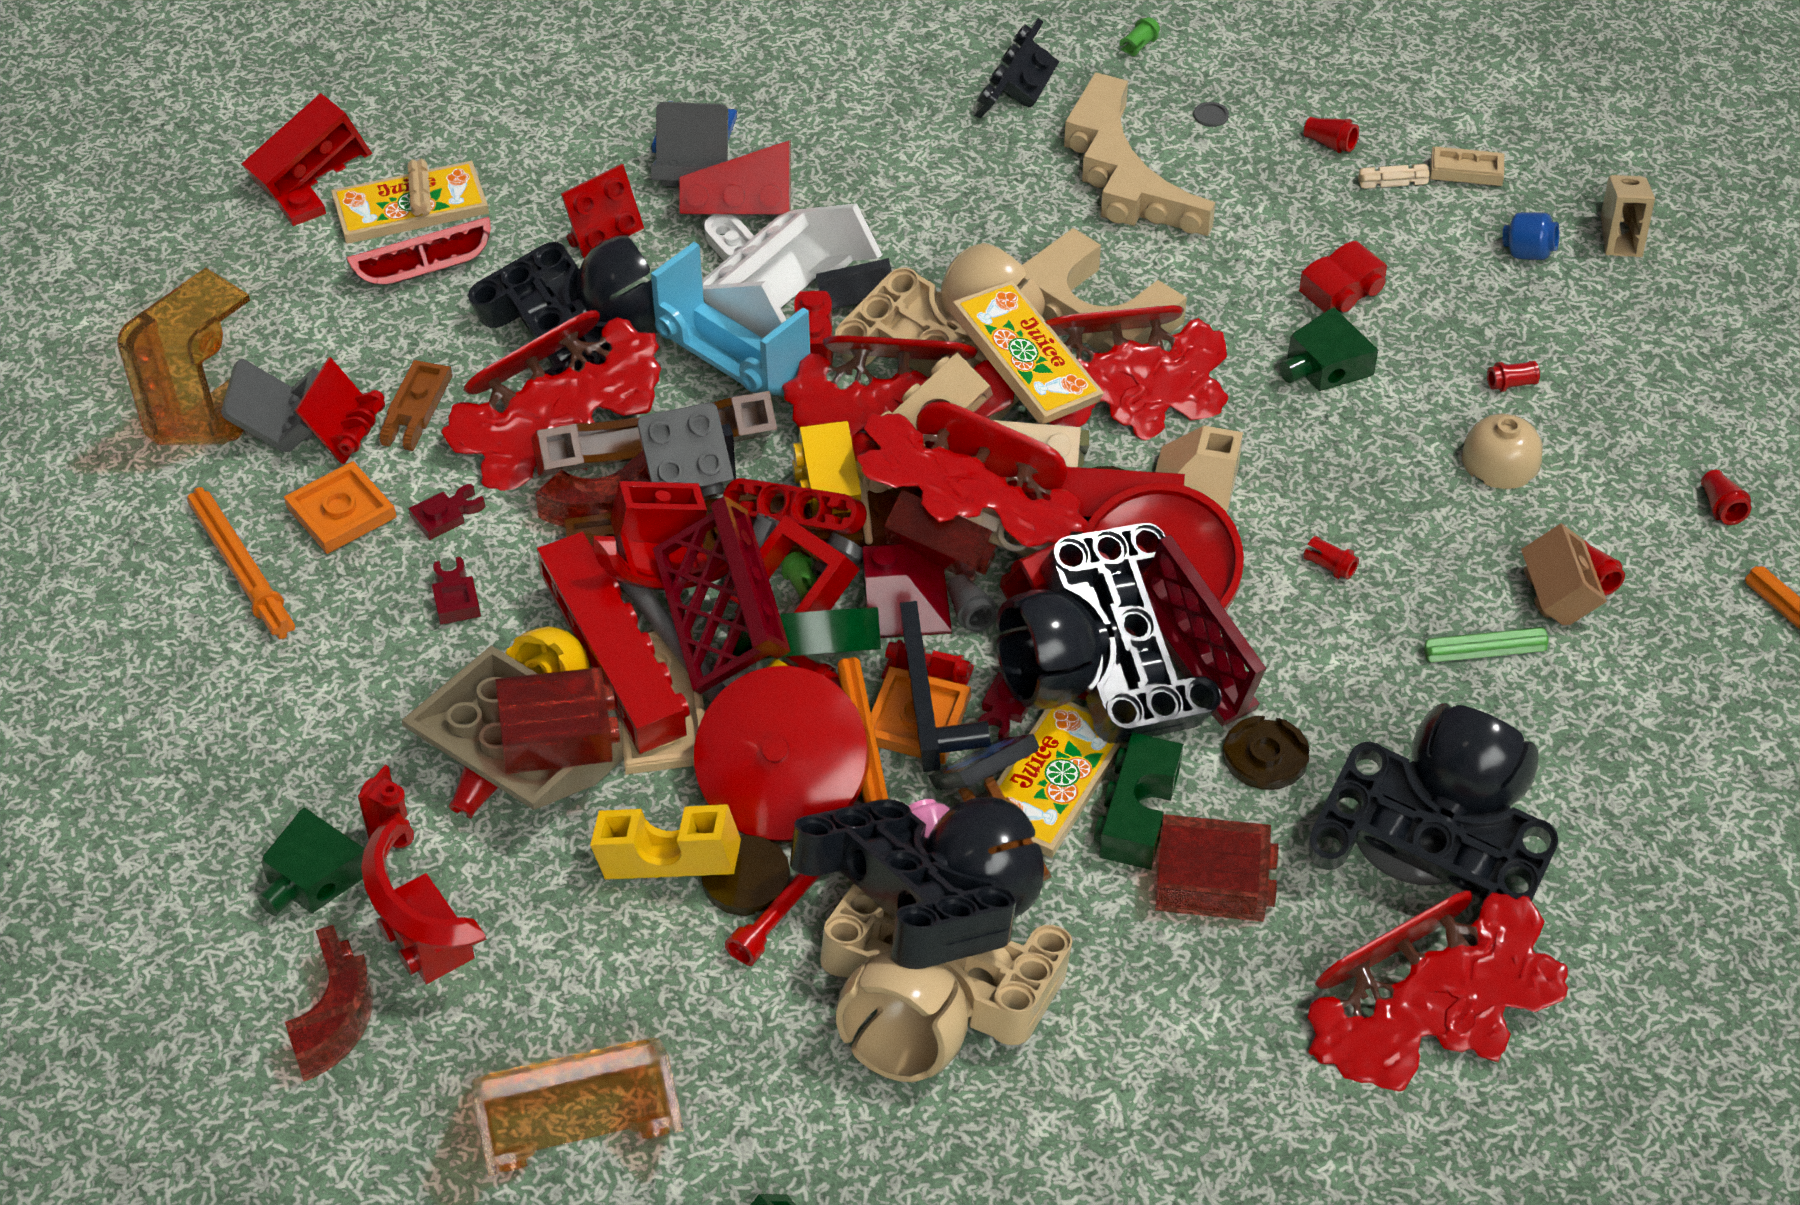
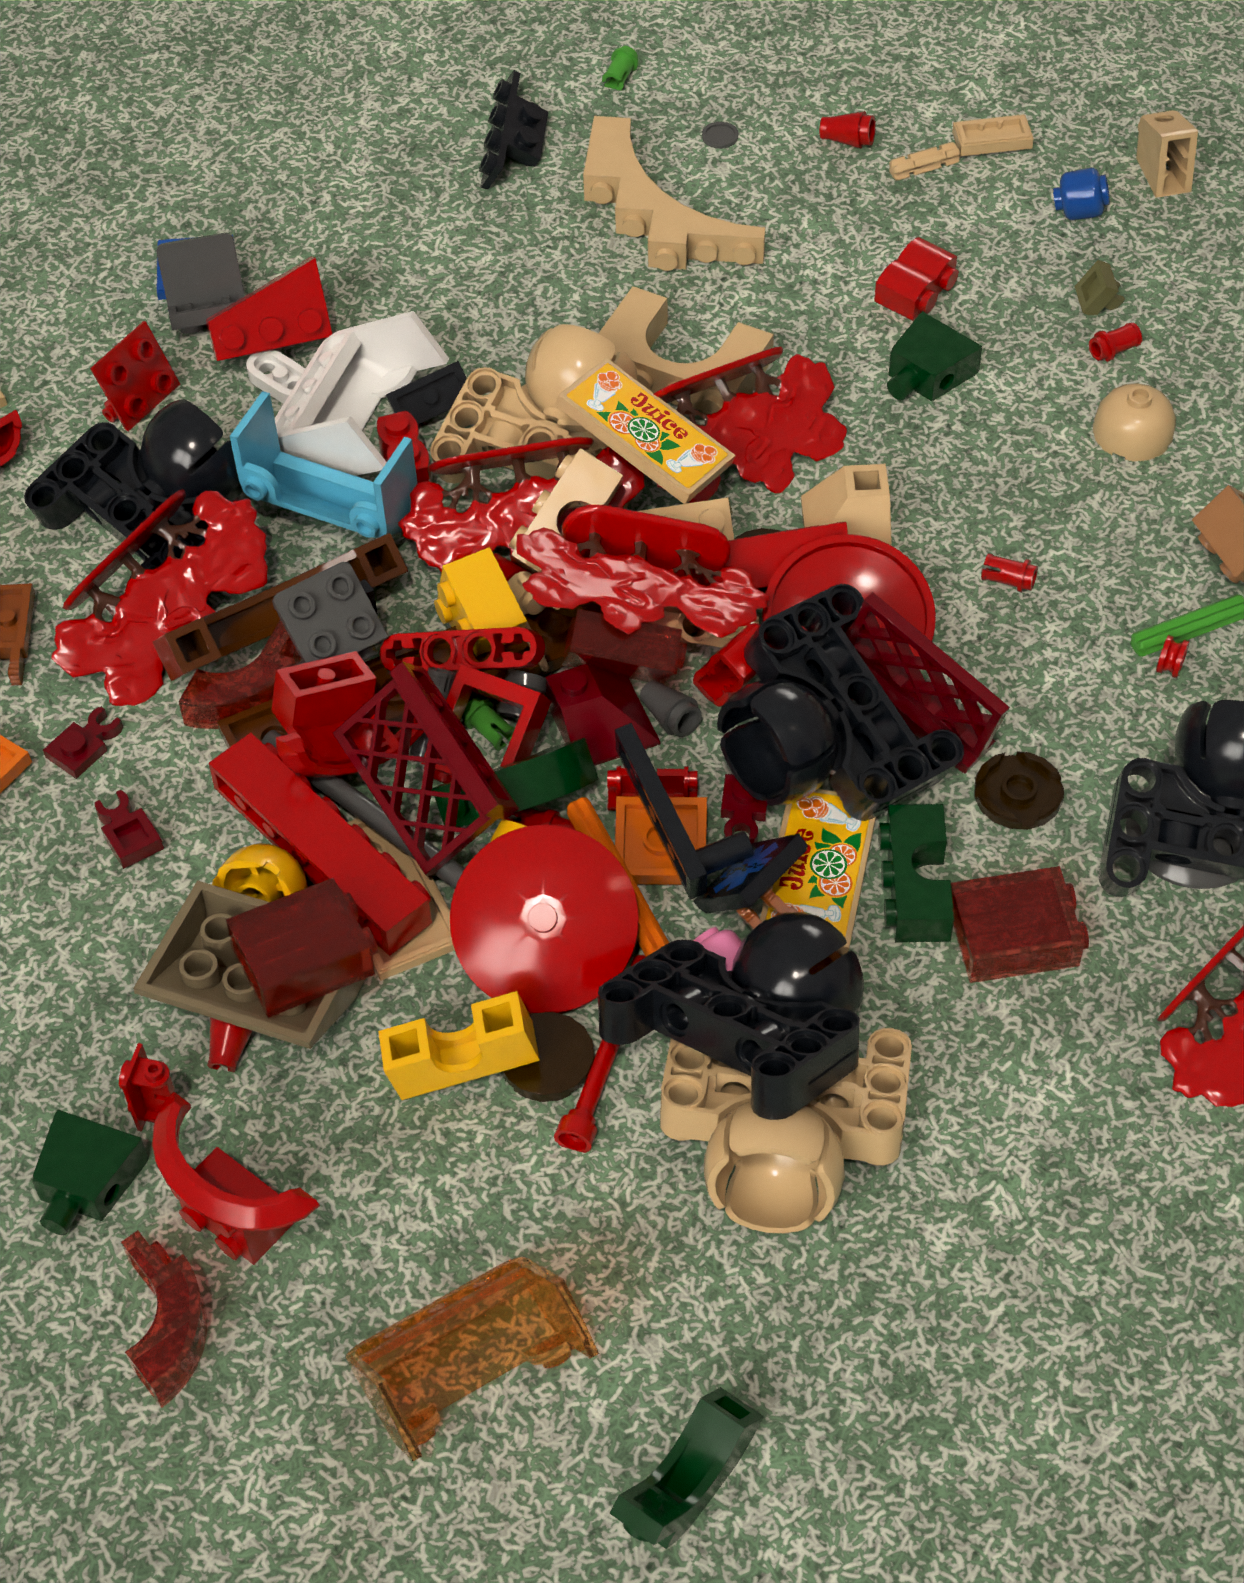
camera: 15 degrees left, 5 degrees up
(1456, 667) = (1172, 656): none -> red bush
(1515, 325) = (1098, 289): none -> olive tile

